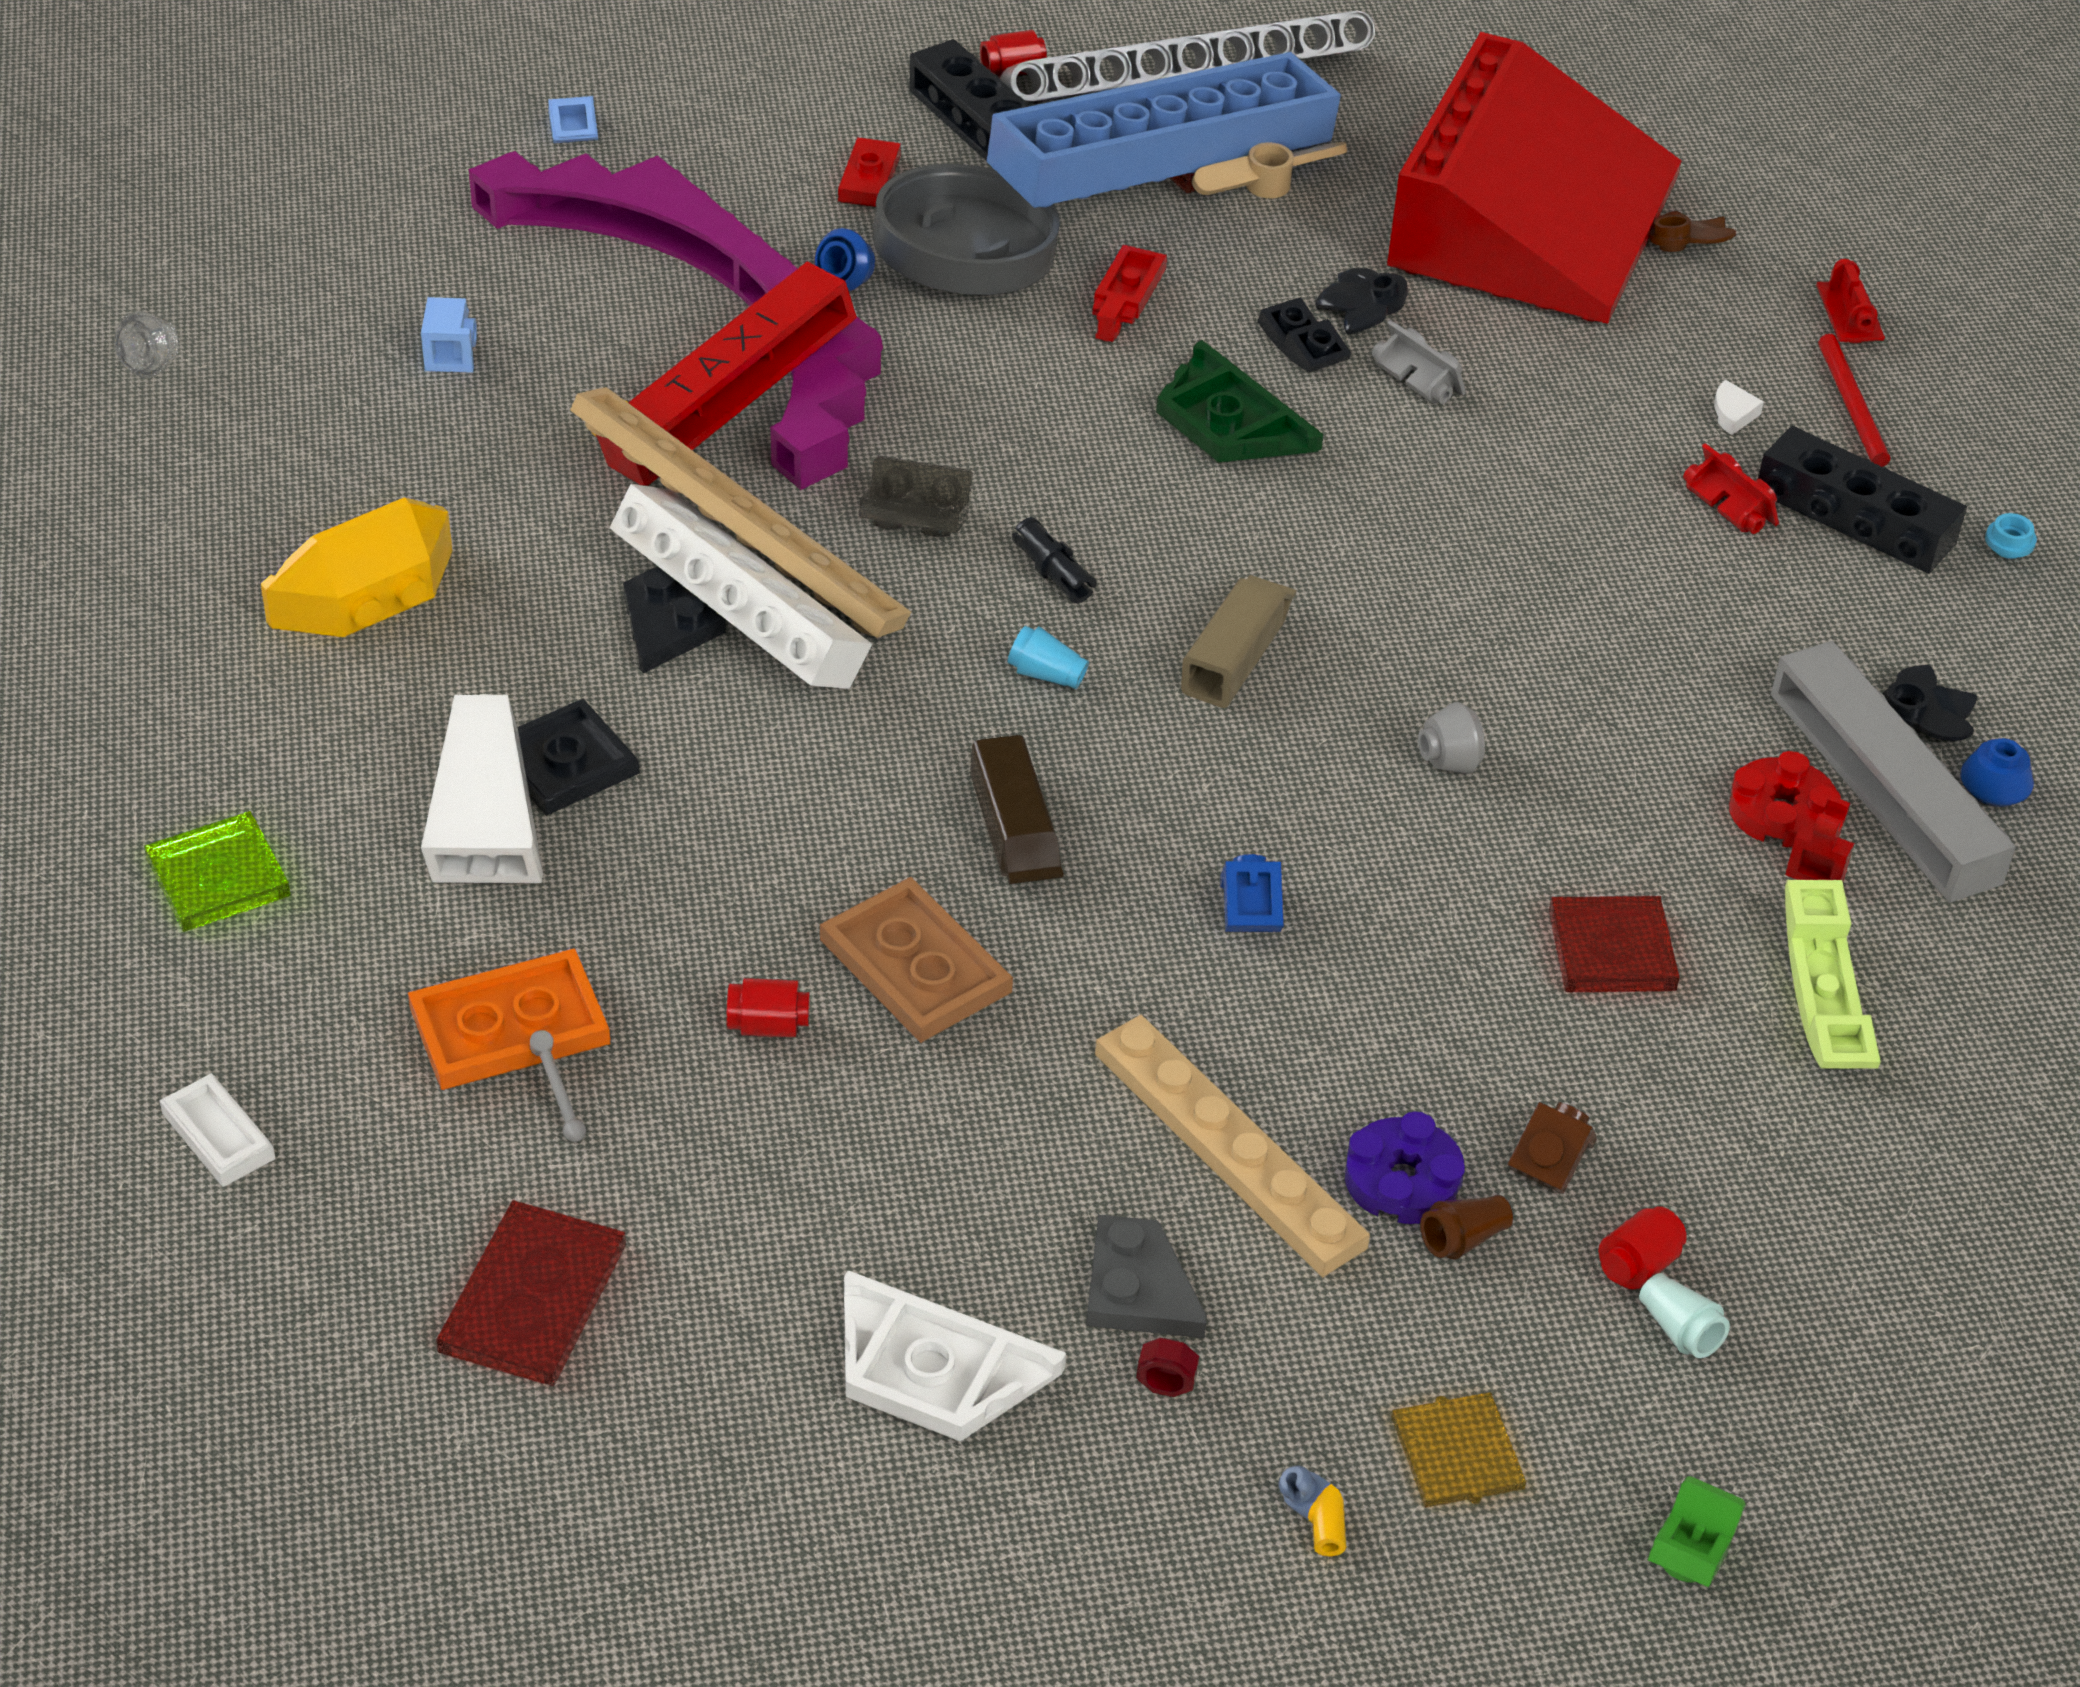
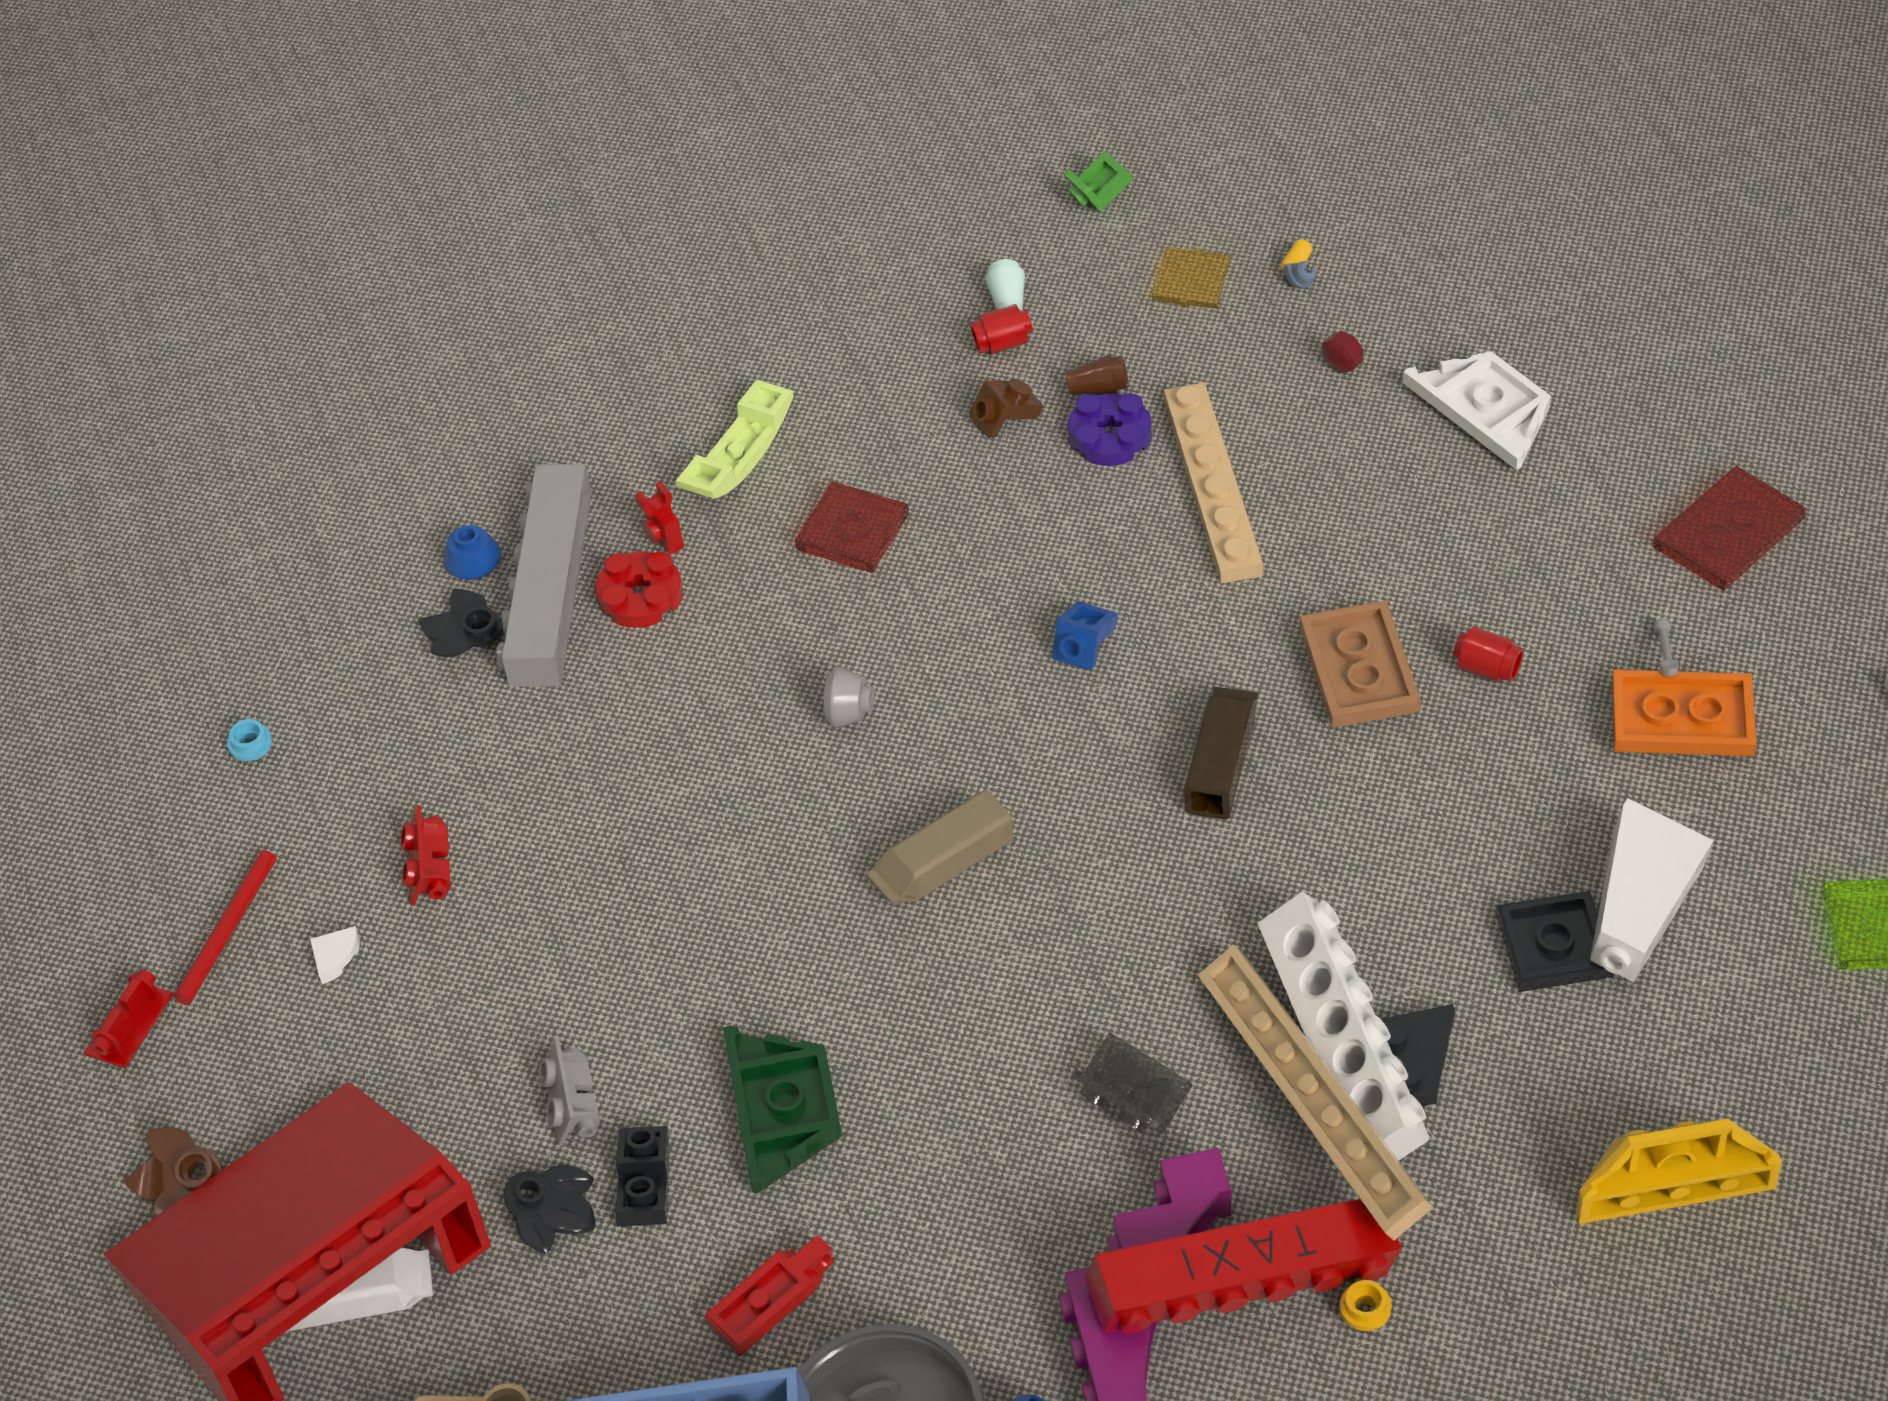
camera: 145 degrees left, 5 degrees up
(1046, 658) = (1112, 886): medium azure cone -> none
(1054, 560) = (1044, 987): black pin -> none
(1140, 1281) = (1327, 417): dark grey wing -> none
(1862, 499) = (336, 806): black brick -> none

